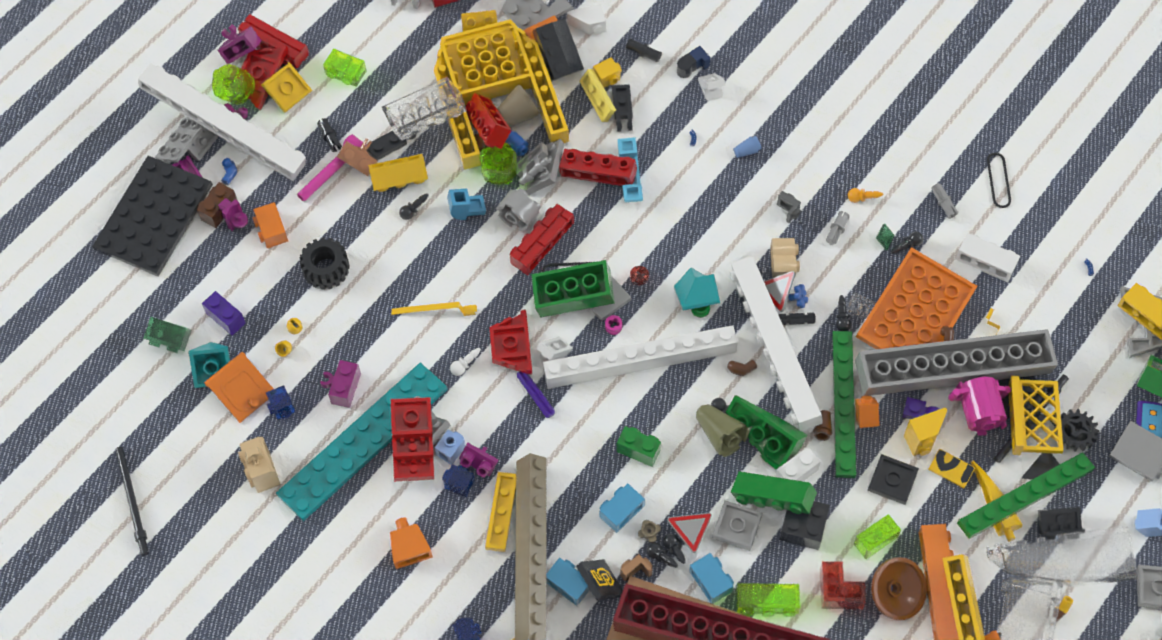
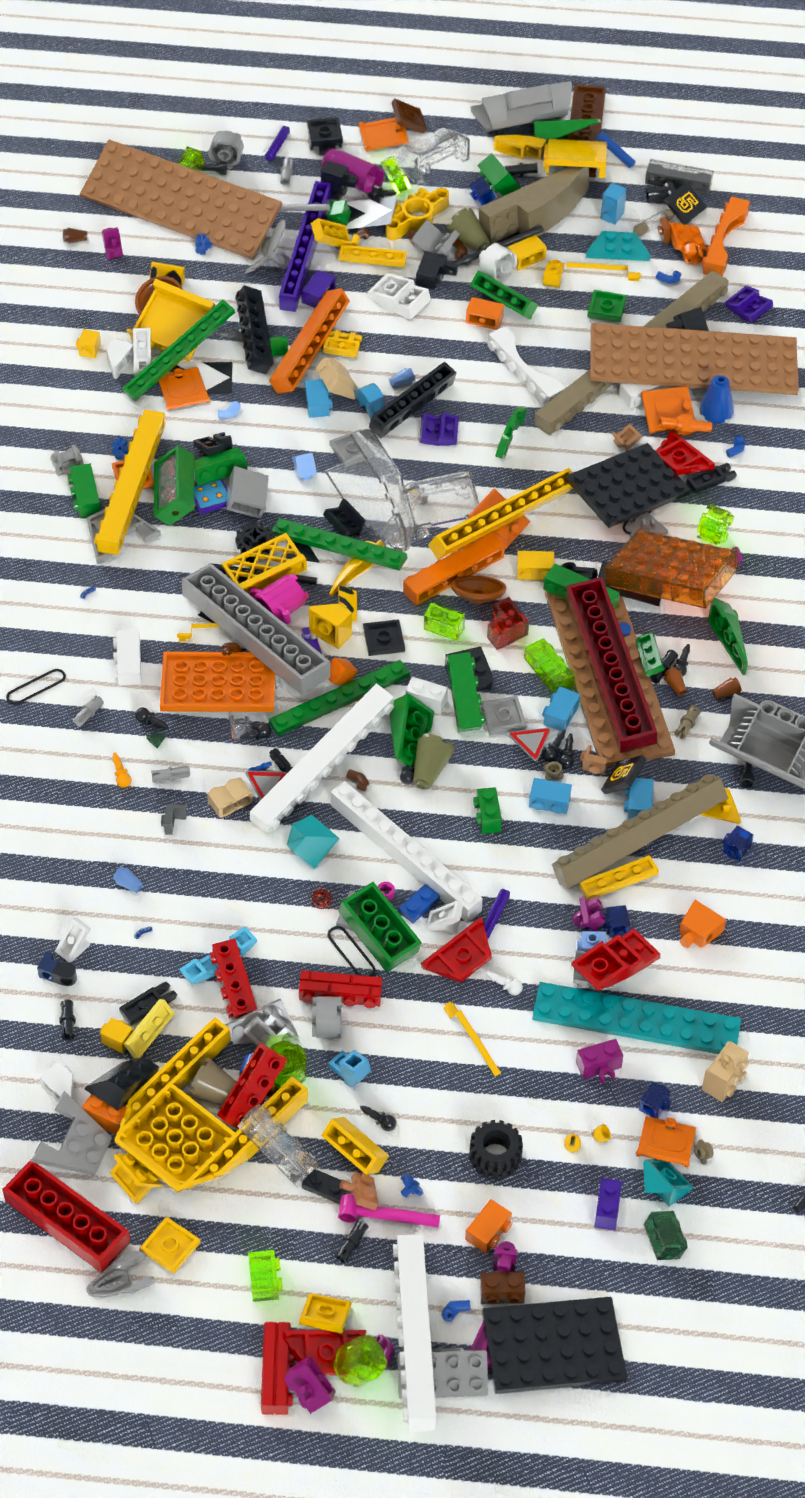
camera: 125 degrees left, 10 degrees down
(213, 409) = (703, 1151): none -> dark tan plate
(340, 194) = (411, 1186): none -> blue plant
(412, 26) = (170, 1245): none -> yellow plate
(584, 339) = (419, 903): none -> blue plate

